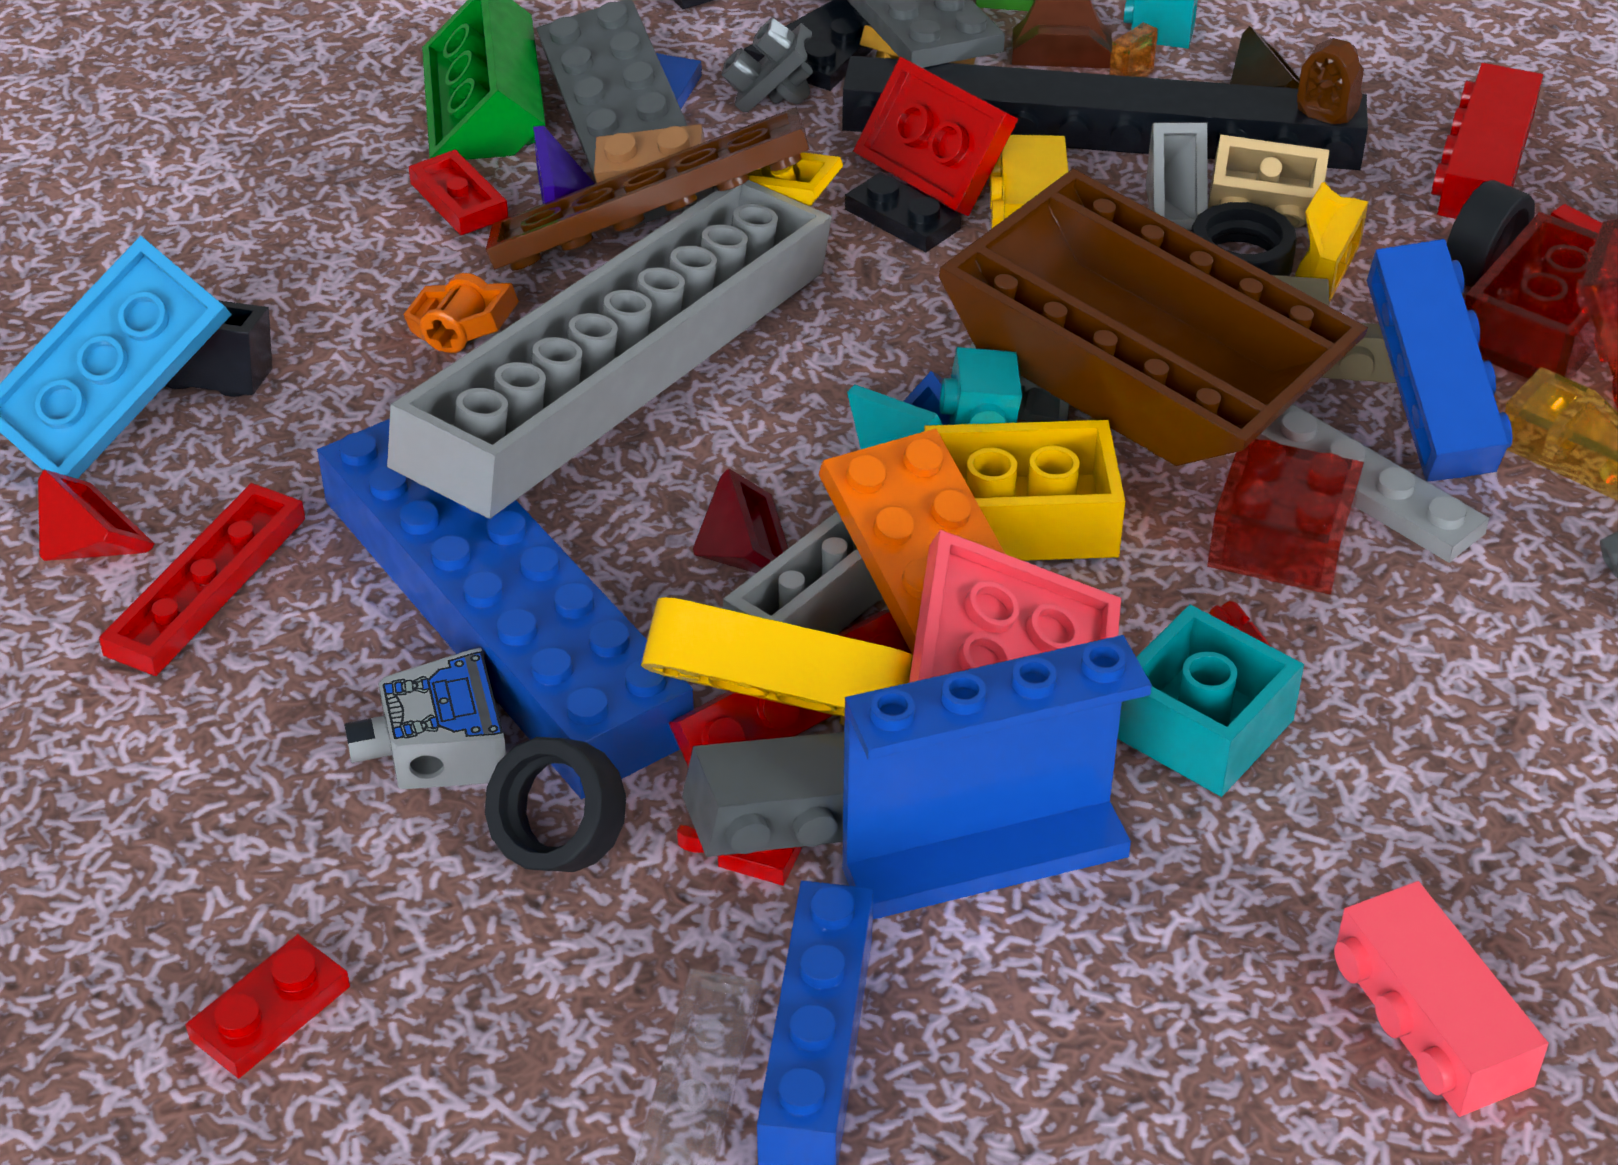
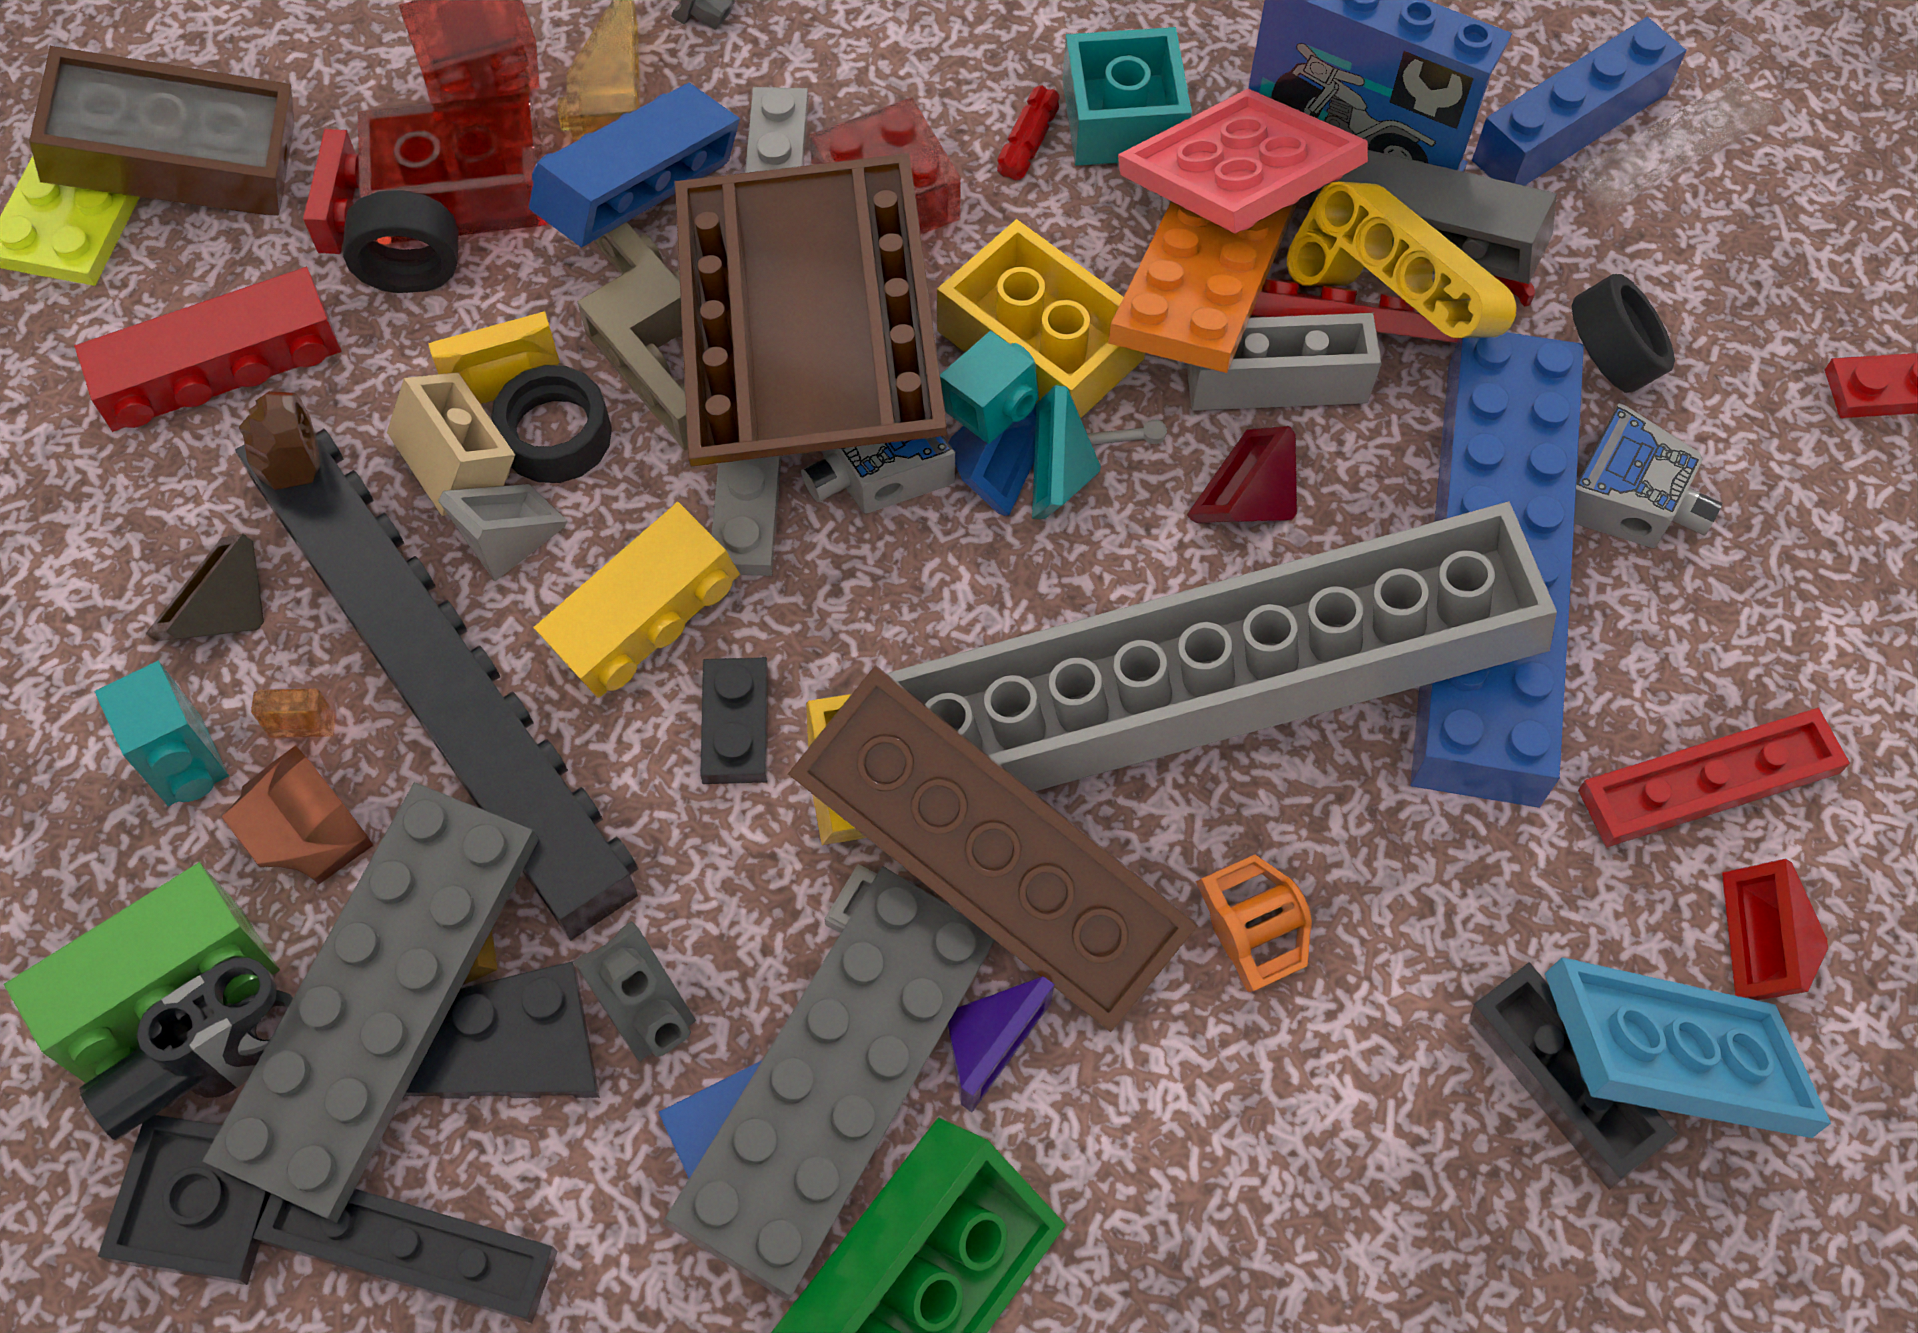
camera: 135 degrees left, 20 degrees up
(458, 192) = (1103, 1112): red plate -> none
(628, 151) = (915, 933): medium nougat plate -> none
(935, 136) = (637, 727): red plate -> none

